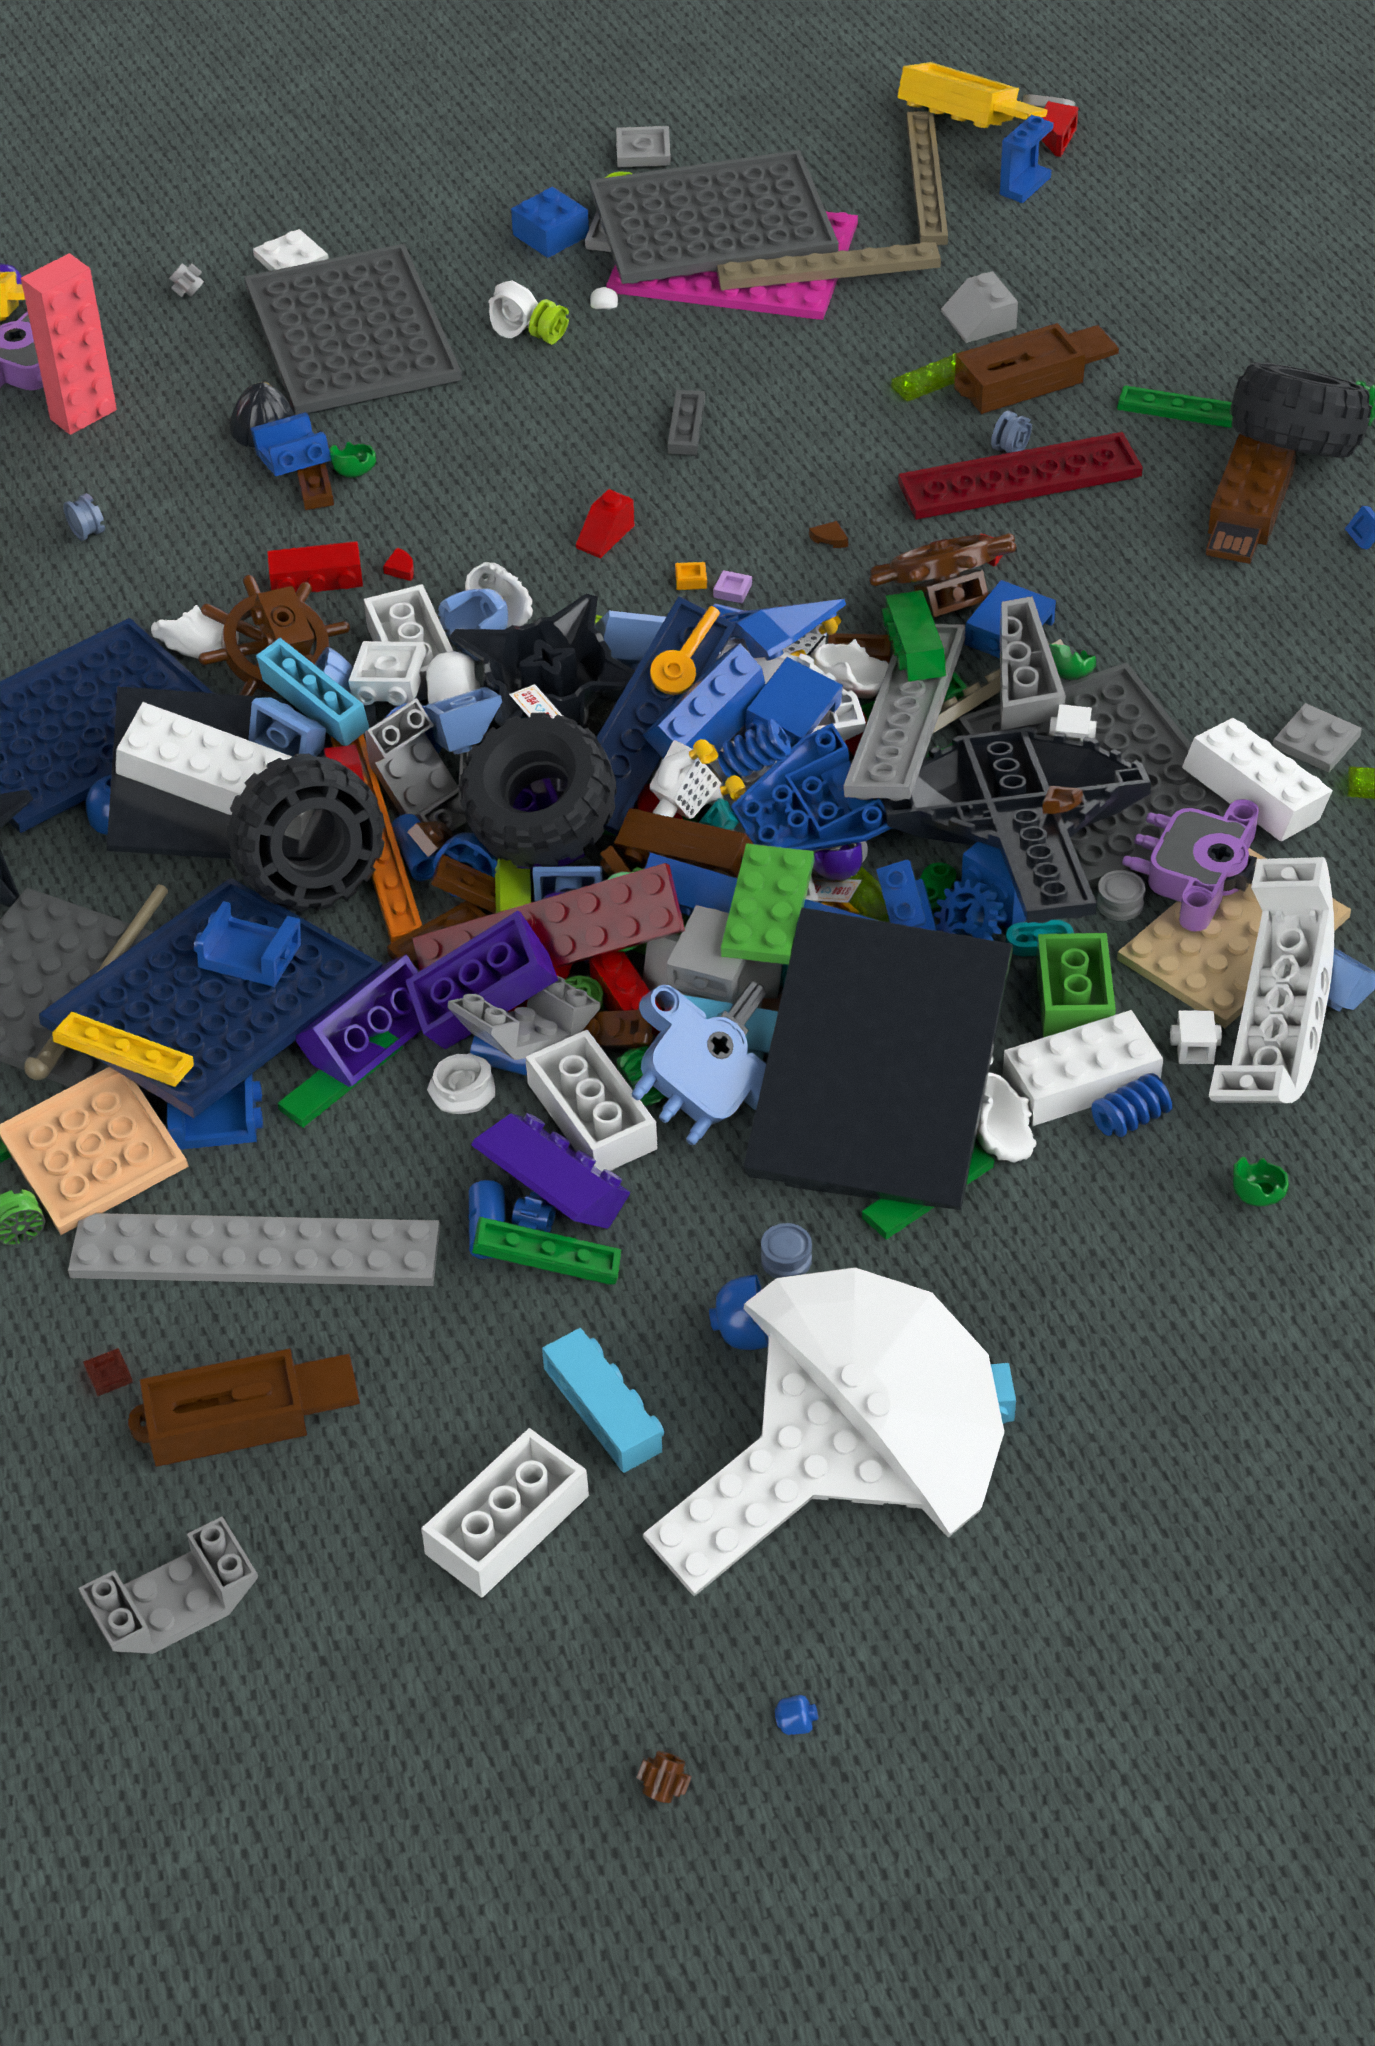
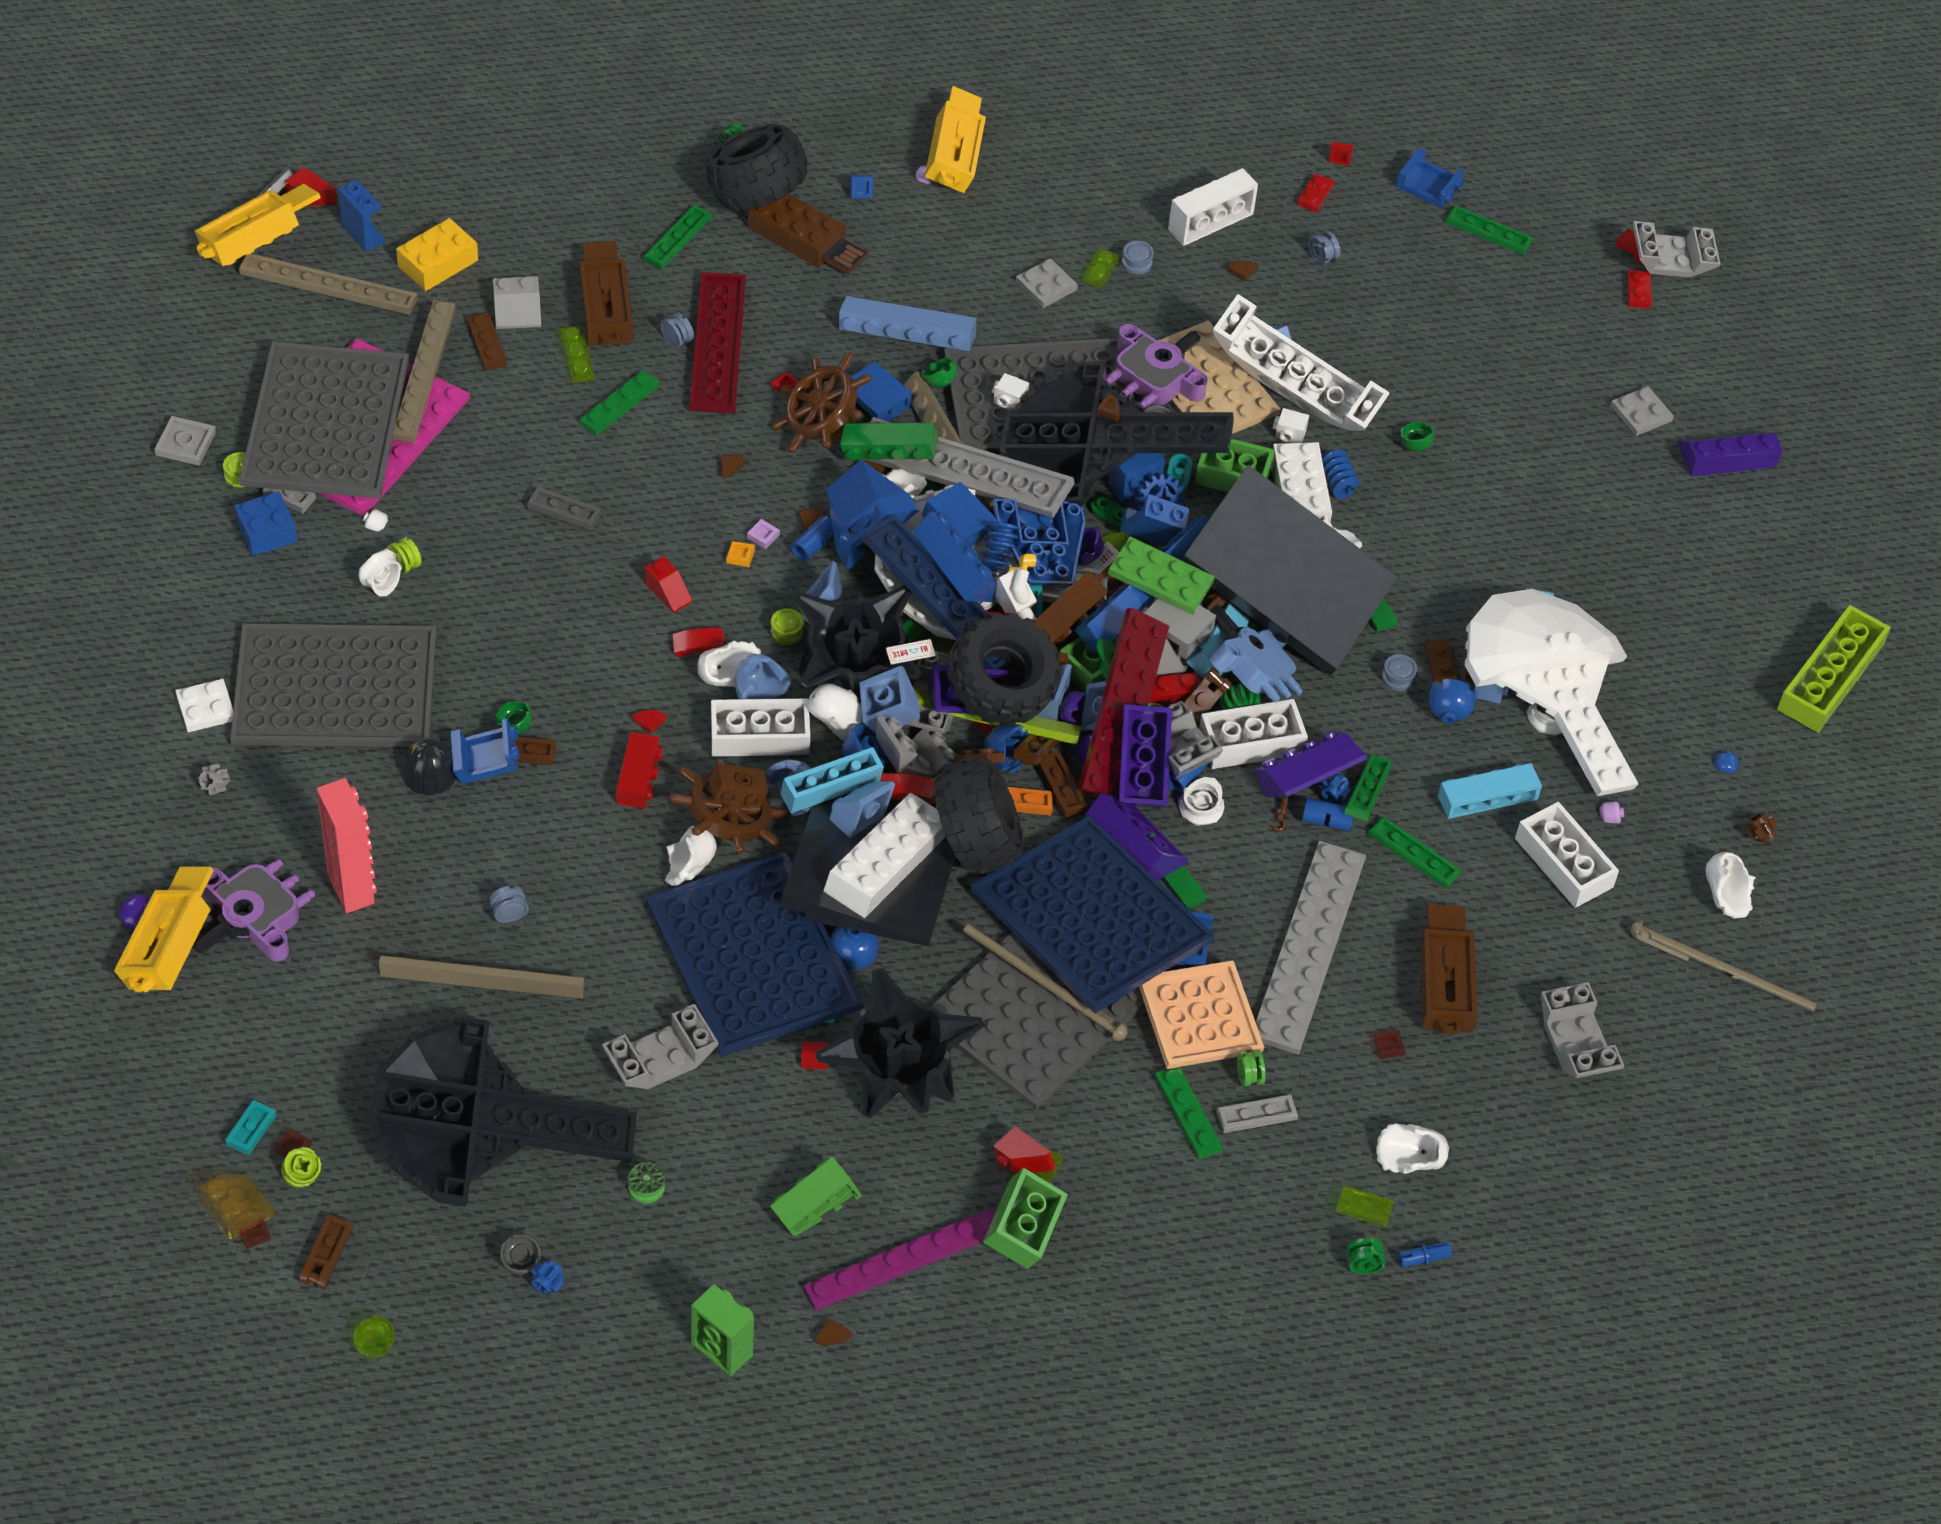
camera: 80 degrees left, 5 degrees up
(123, 1049) = (1149, 962): yellow tile -> none
(246, 947) = (1063, 877): blue panel -> none
(387, 672) = (810, 737): white plate -> none
(403, 1642) = (1684, 952): none -> dark tan bar
(462, 1338) = (1414, 852): none -> green tile
(476, 1173) = (1281, 813): none -> reddish brown hand
(504, 1749) = (1730, 884): none -> white piece
(534, 572) = (697, 640): none -> red slope
(631, 1571) = (1611, 812): none -> lavender piece
(674, 670) = (918, 560): light orange piece -> none
(878, 426) = (619, 402): none -> green plate
(912, 307) = (486, 341): none -> reddish brown plate
(1016, 233) = (437, 254): none -> yellow brick
(1027, 670) = (951, 392): light grey wedge -> none
(1049, 1830) = (1833, 668): none -> lime brick
(1143, 617) = (907, 323): none -> medium blue brick
(1247, 767) = (1088, 319): white brick -> none

